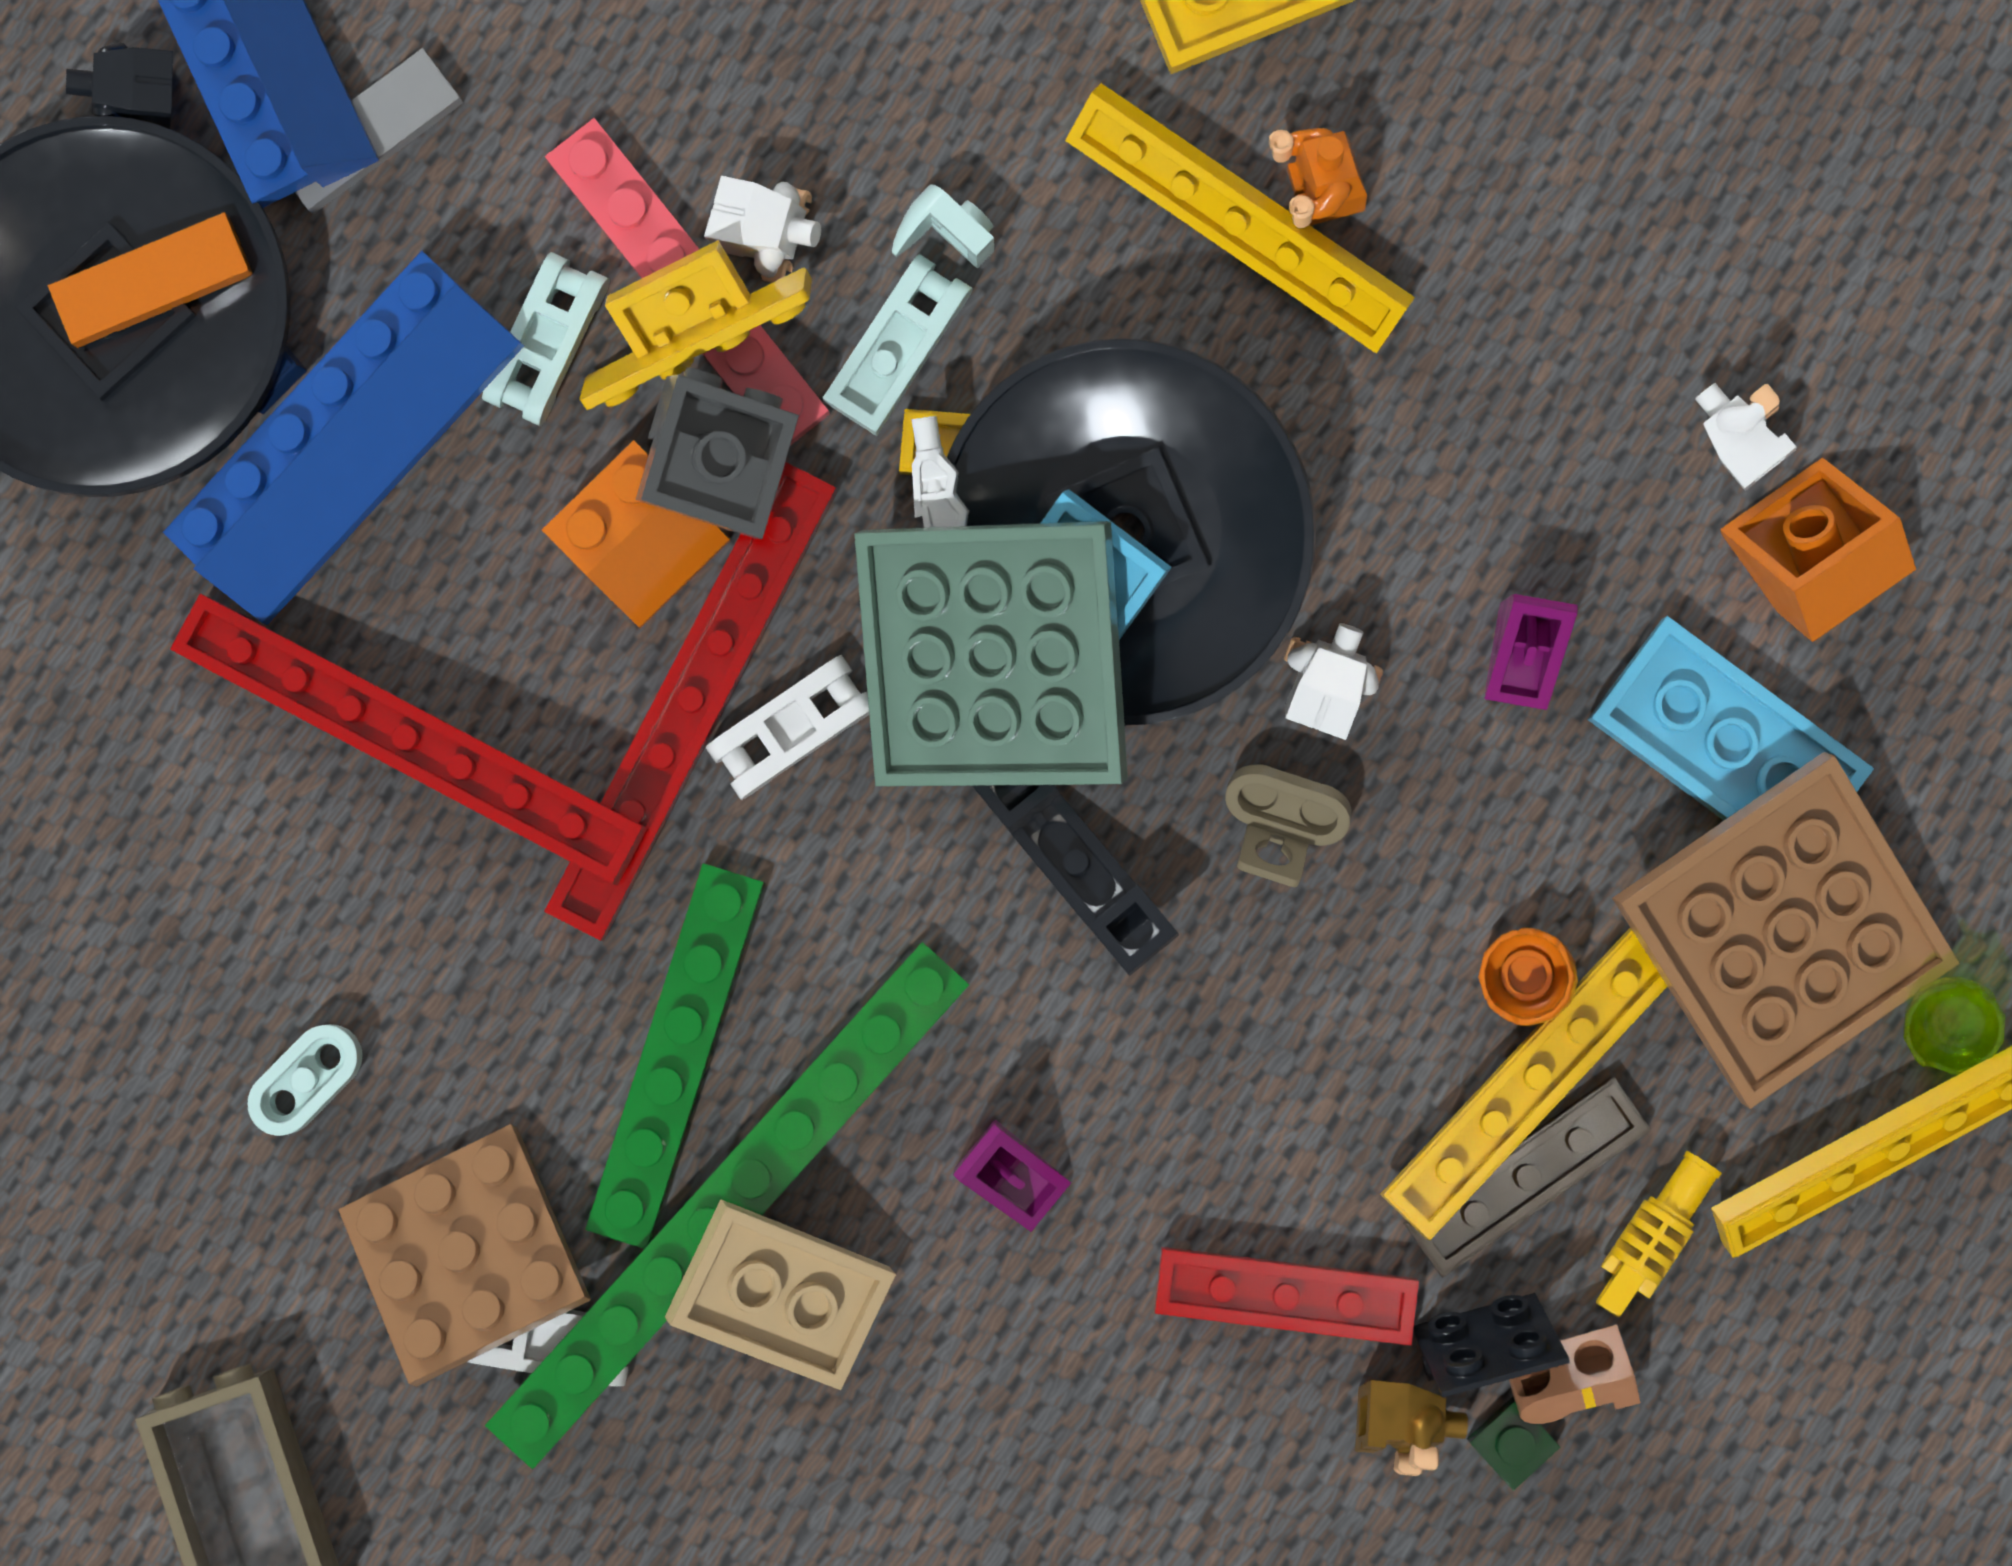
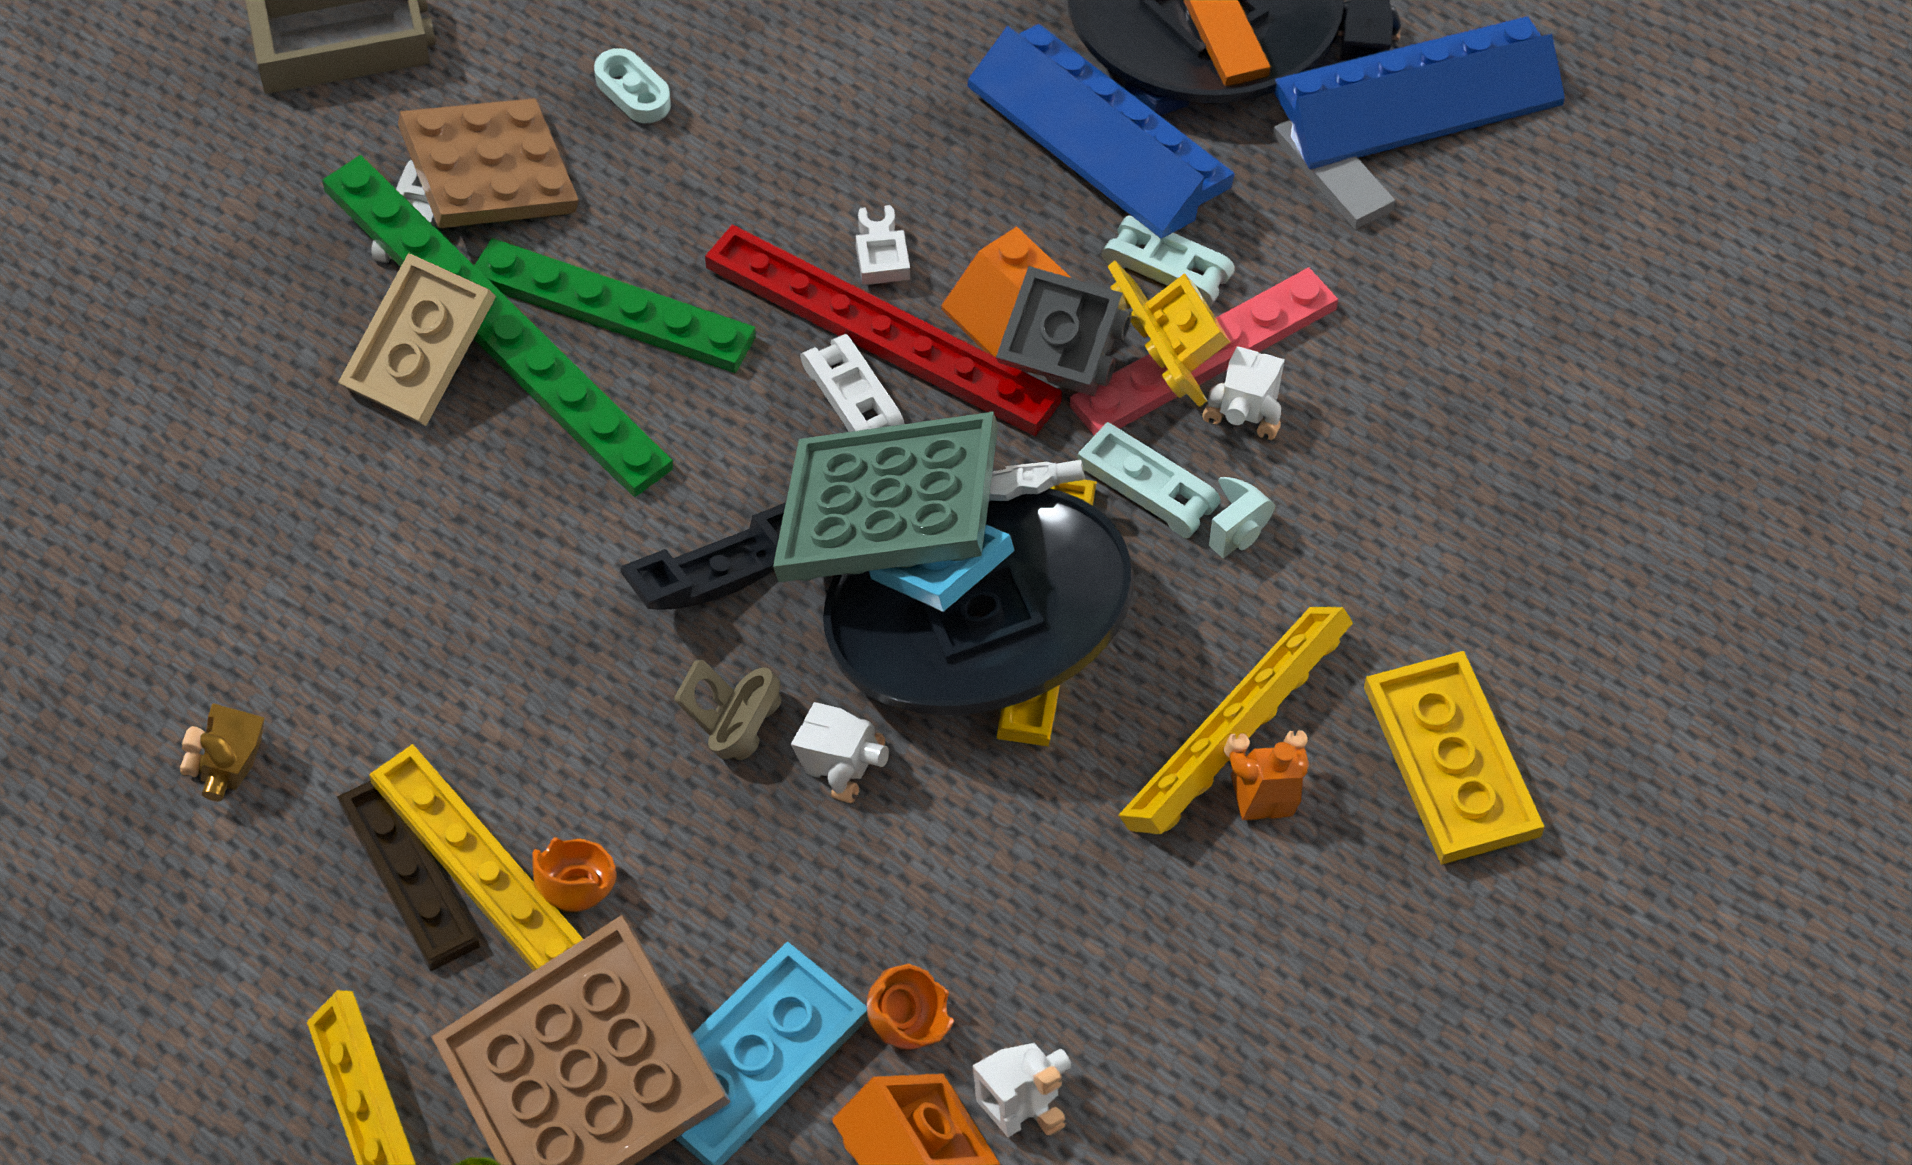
camera: 90 degrees right, 30 degrees down
(409, 739) = (866, 155): red plate -> none
(567, 709) = (881, 250): none -> white plate
(1011, 1176) = (482, 497): magenta slope -> none
(1286, 1296) = (345, 684): red plate -> none
(1489, 1344) = (274, 812): black hinge -> none
(1511, 1445) = (189, 840): dark green plate -> none
(1528, 650) = (854, 901): magenta slope -> none
(1594, 1377) = (233, 880): nougat leg -> none
(1656, 1235) = (337, 958): yellow hinge -> none
(1667, 568) = (908, 1008): none -> orange hair

